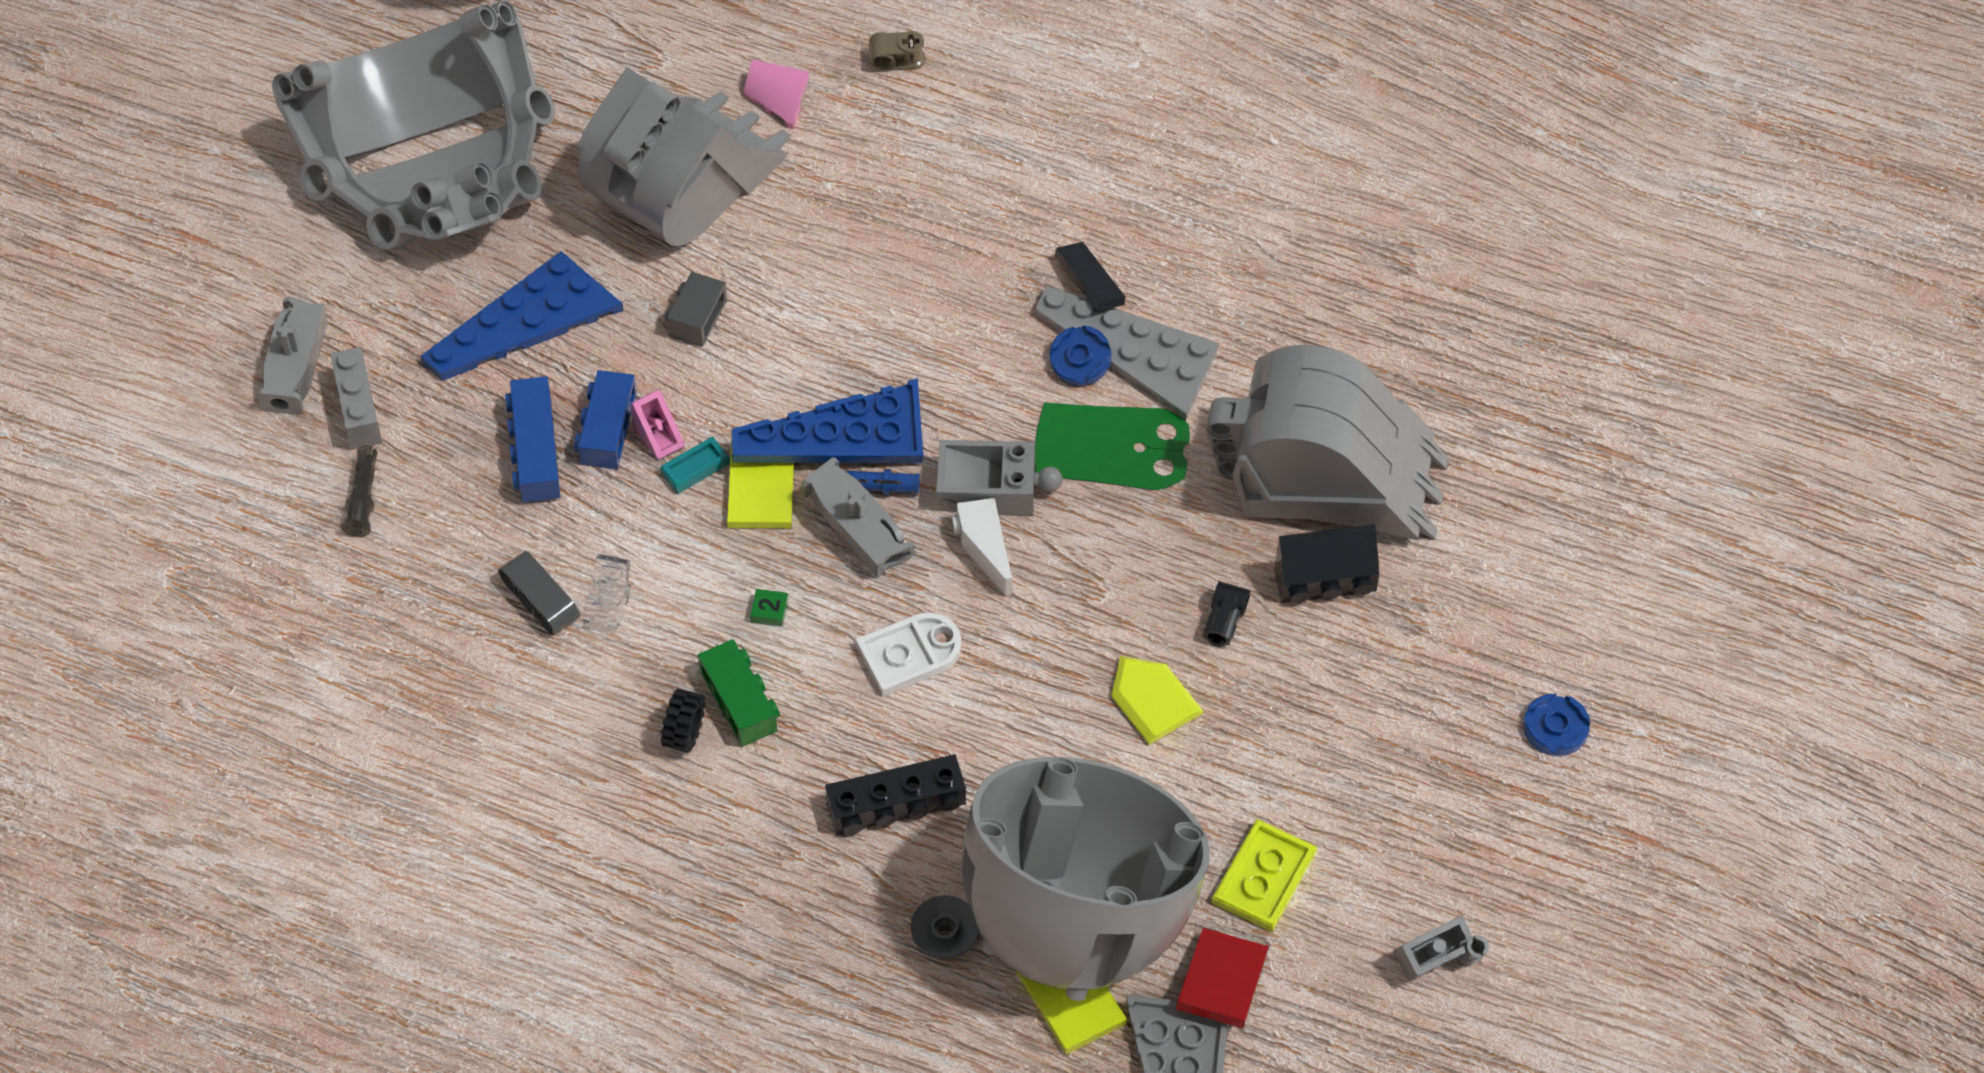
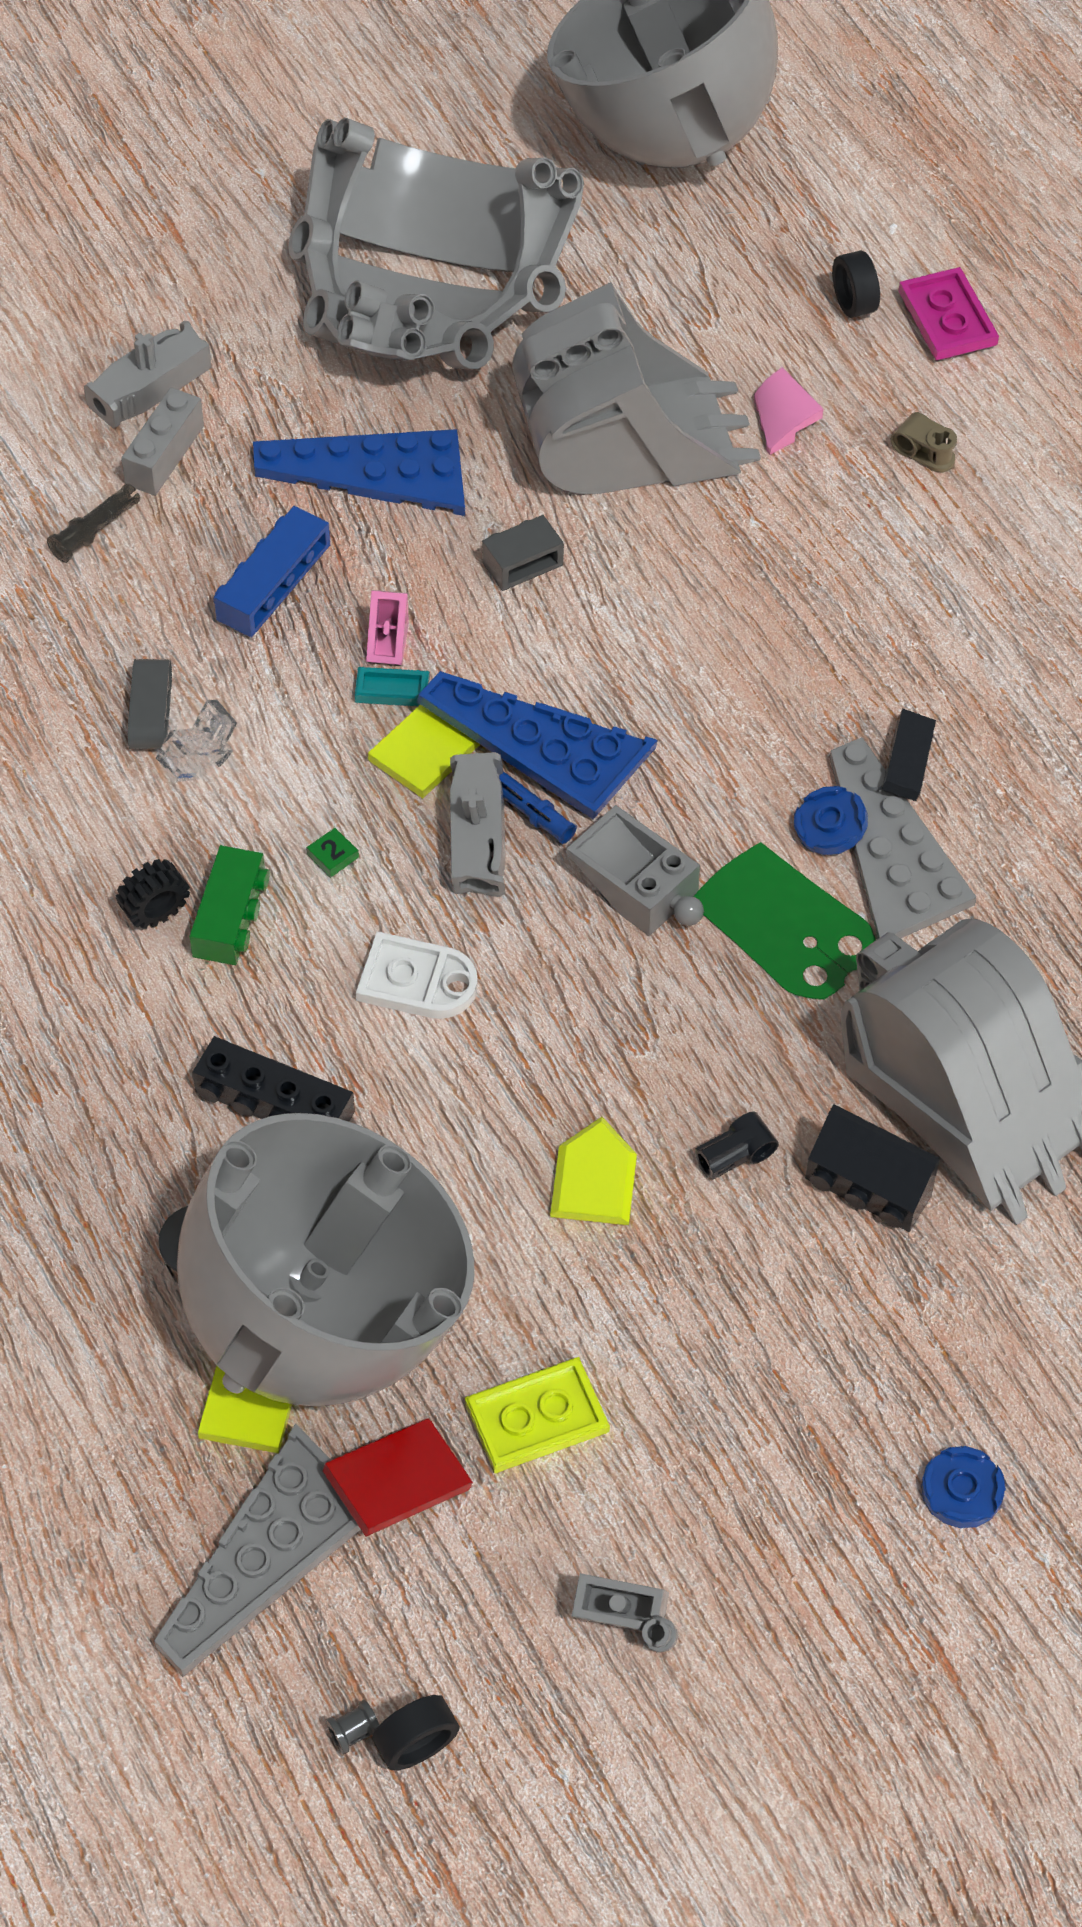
camera: 40 degrees right, 0 degrees up
(606, 419) = (346, 596): blue brick -> none
(983, 540) = (581, 916): white slope -> none

